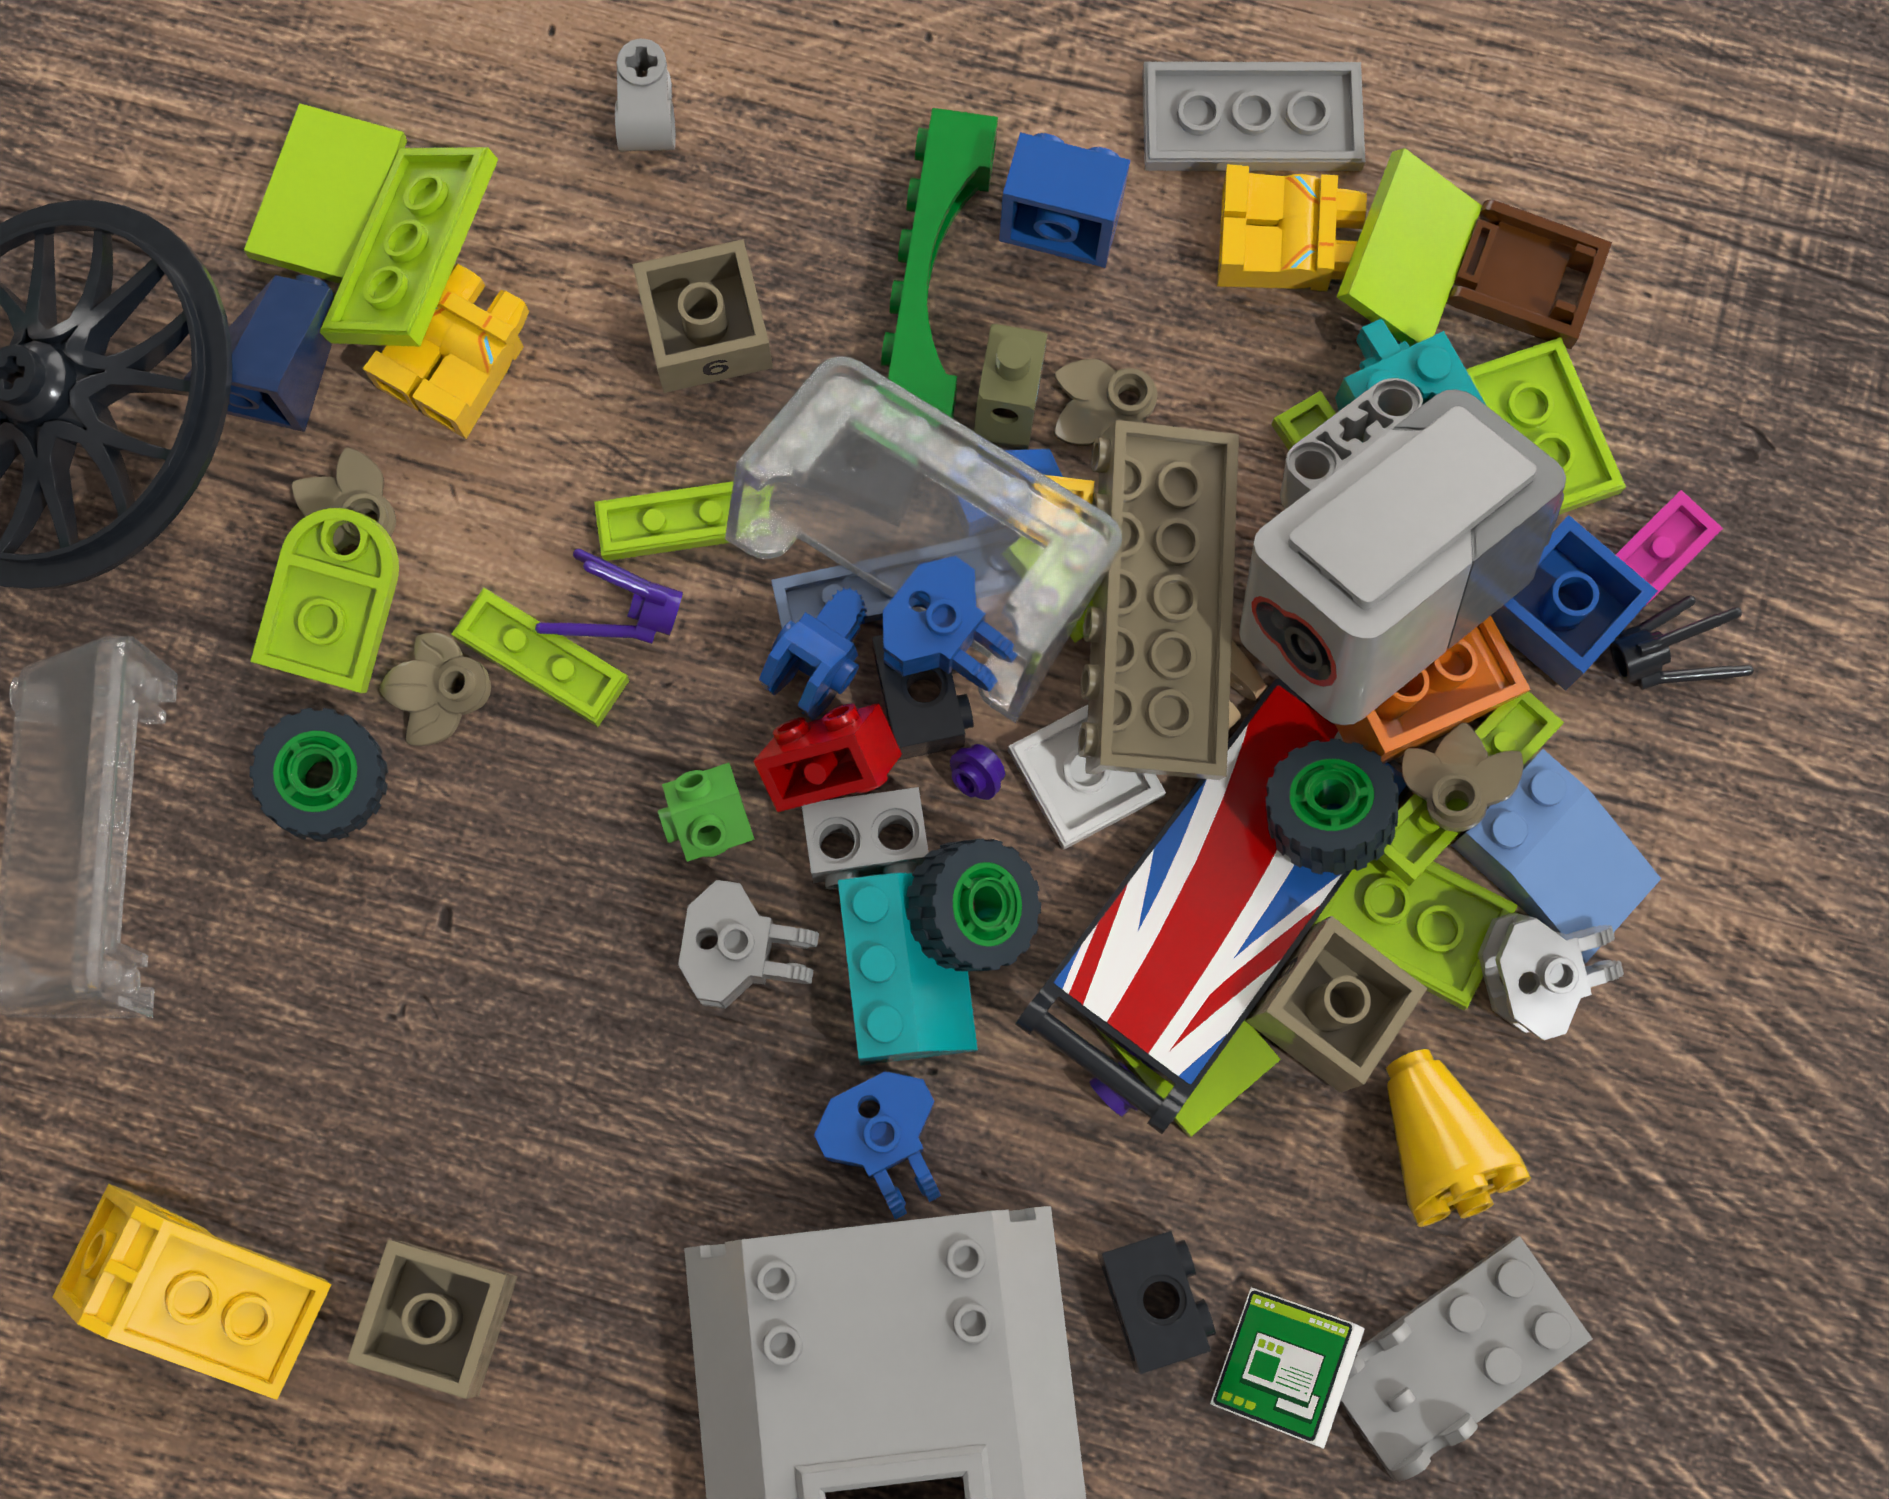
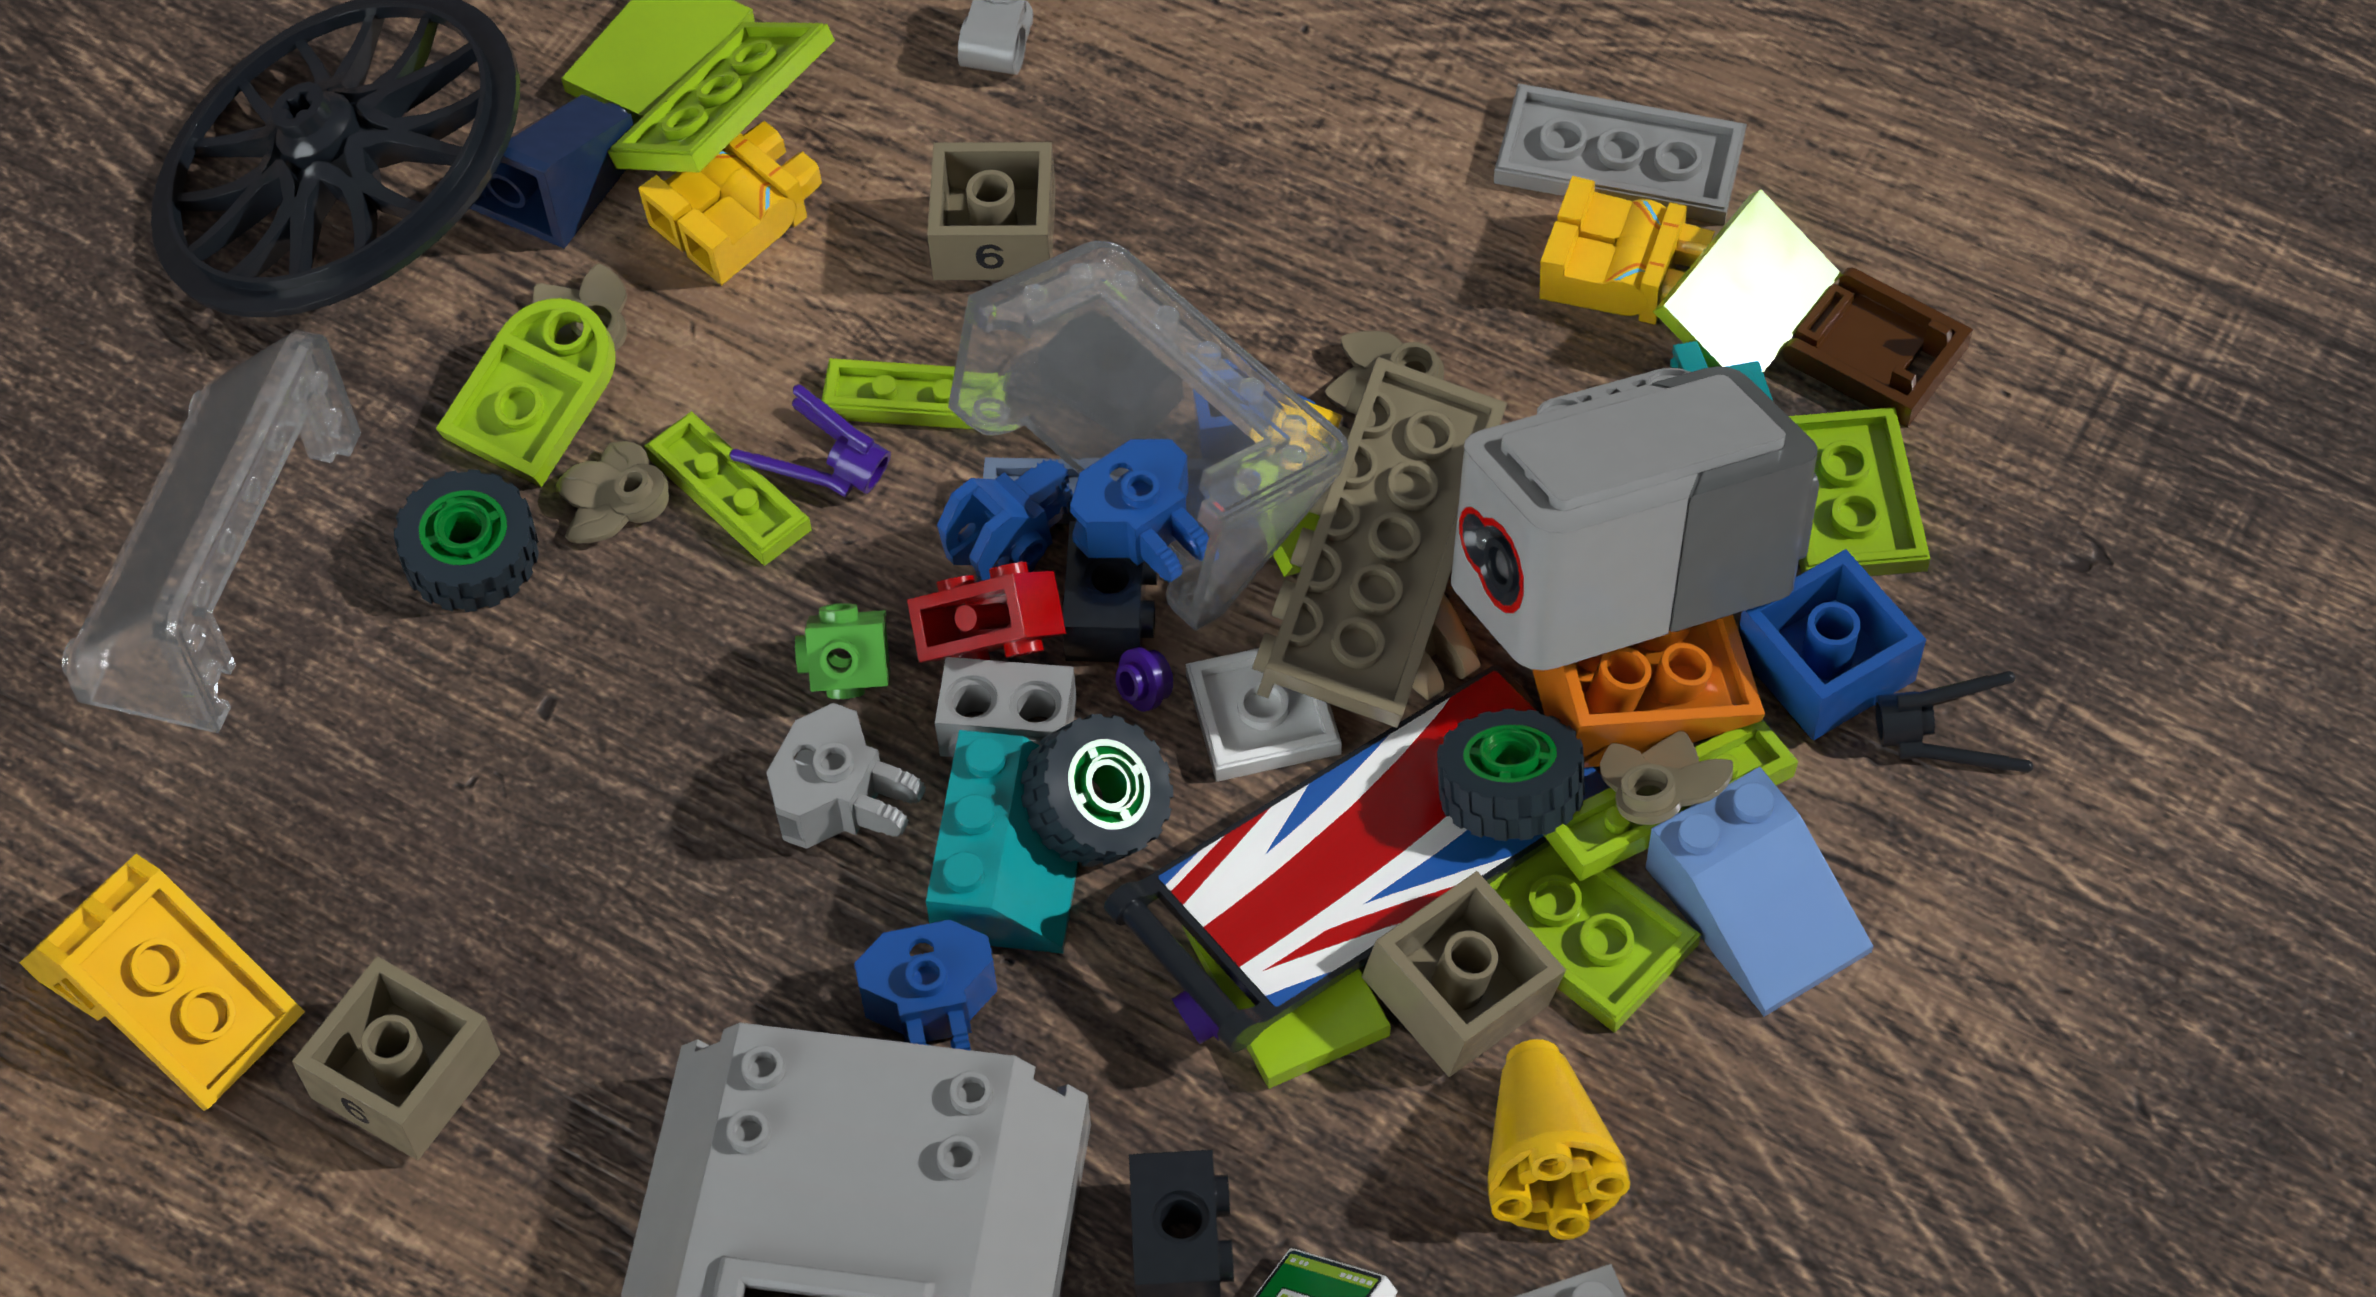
camera: 20 degrees right, 20 degrees down
(956, 164) = (1291, 135): green arch -> none
(1010, 382) = (1300, 313): olive torso -> none
(1063, 198) = (1391, 175): blue brick -> none
(1541, 972) = (1711, 990): hinge -> none
(1669, 541) = (1964, 621): dark pink plate -> none

